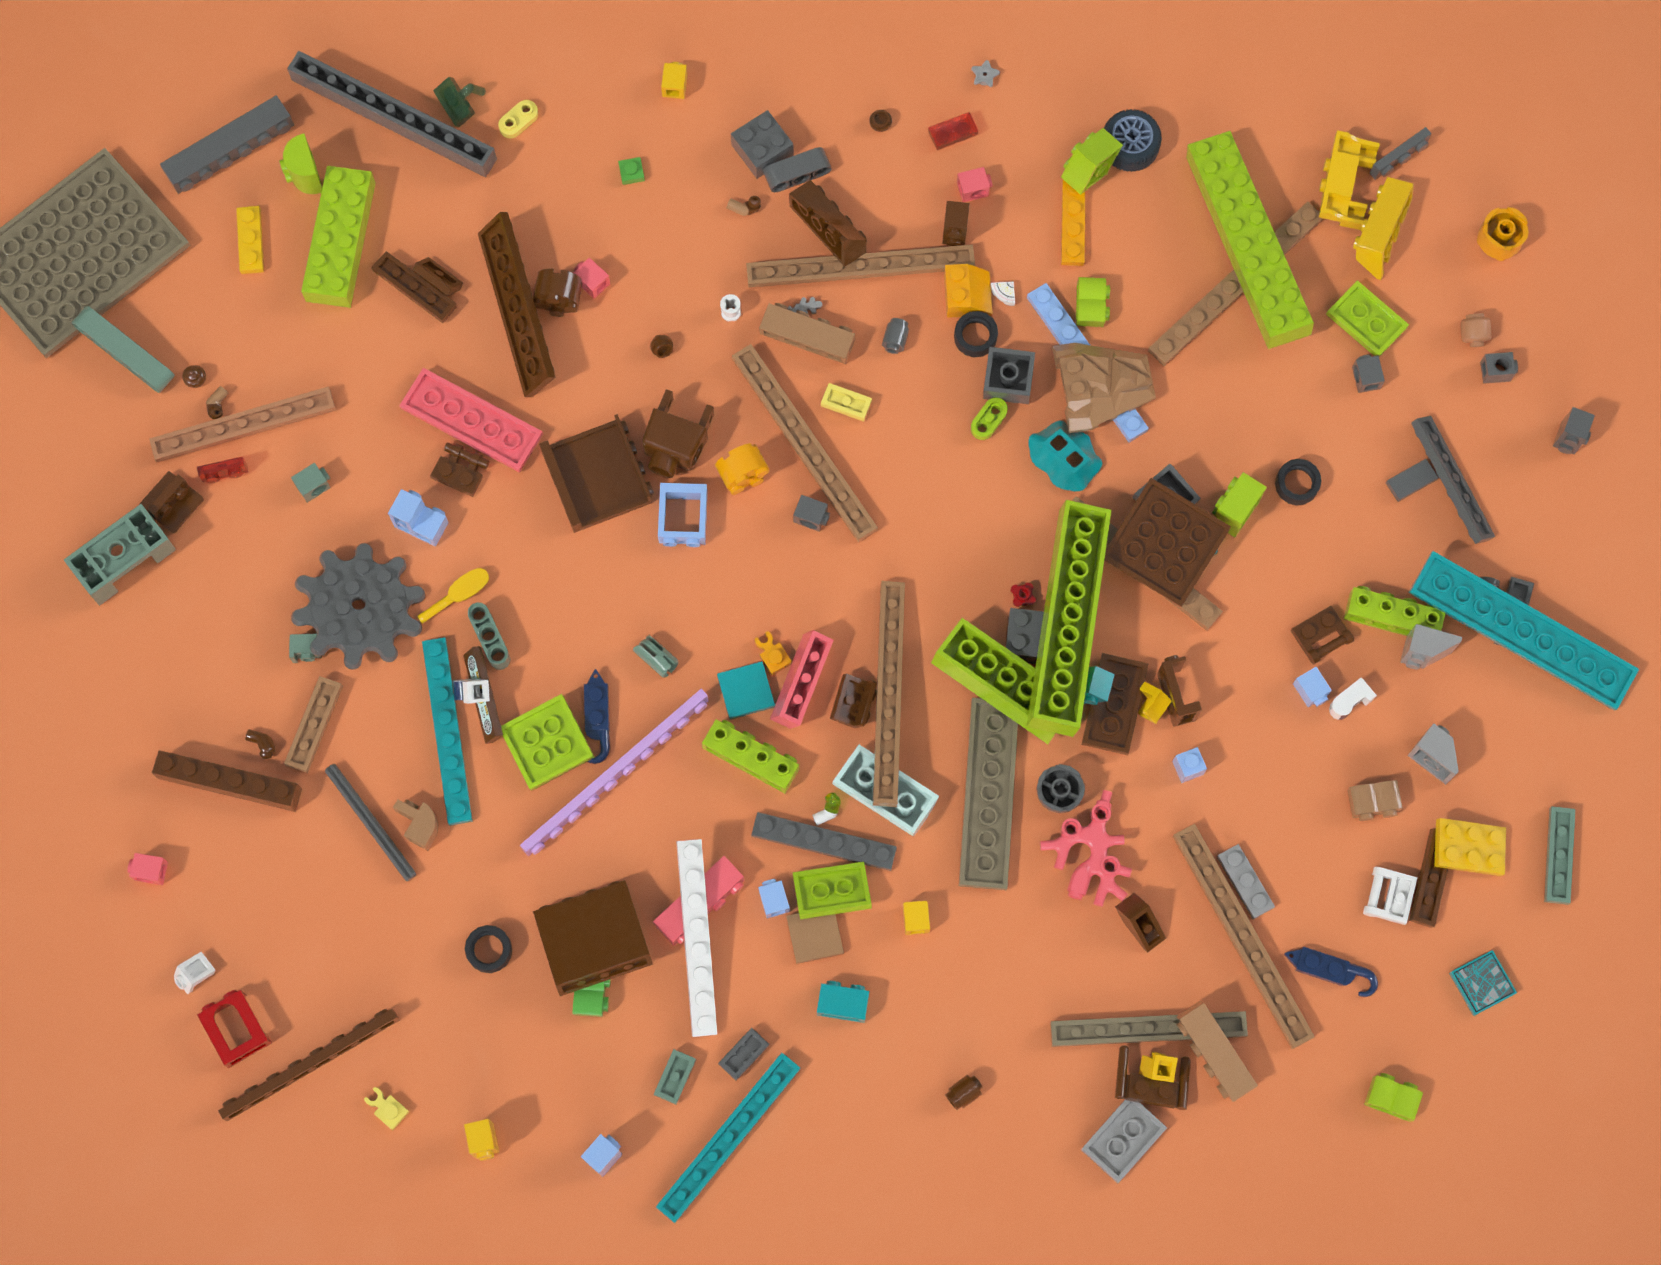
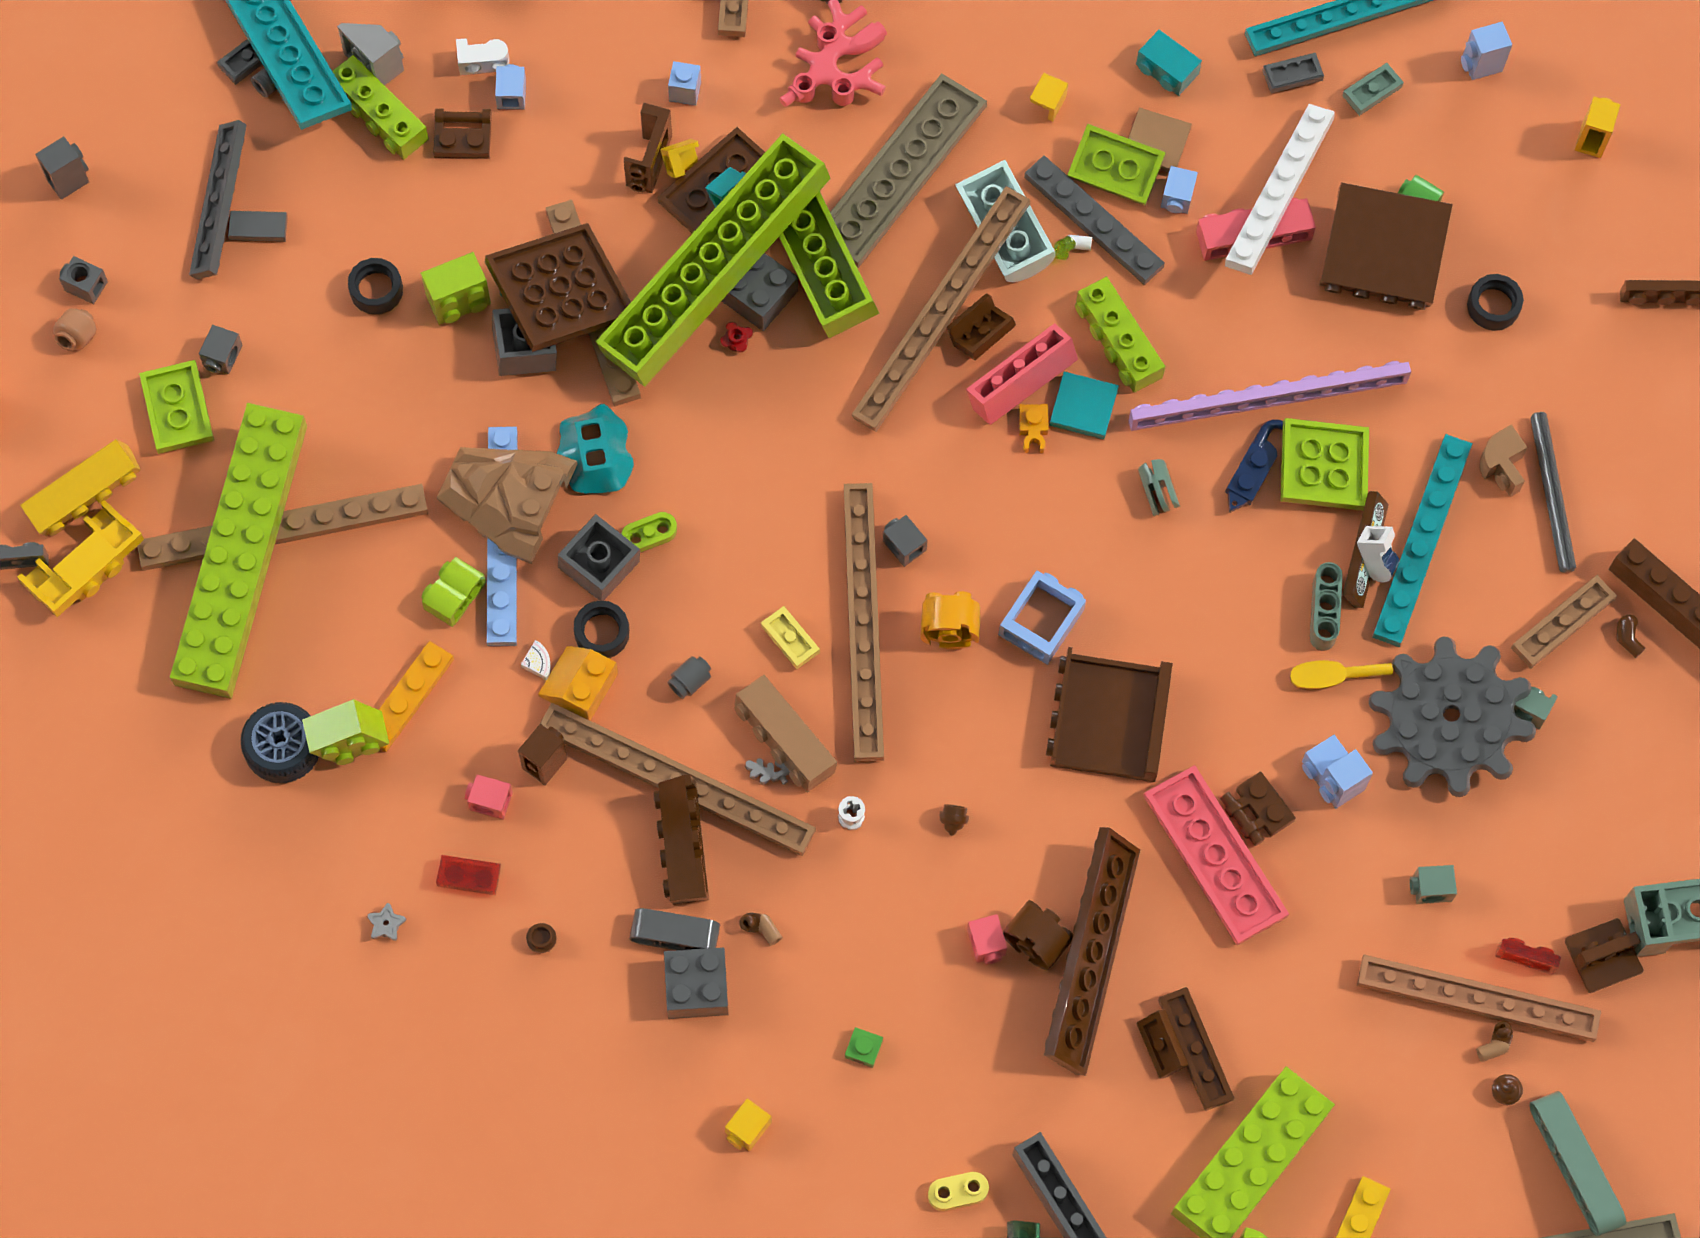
camera: 150 degrees left, 5 degrees down
(388, 1110) = (1675, 213): light yellow plate -> none
(674, 440) = (1005, 696): reddish brown piece -> none
(1060, 788) = (830, 123): dark grey cylinder -> none

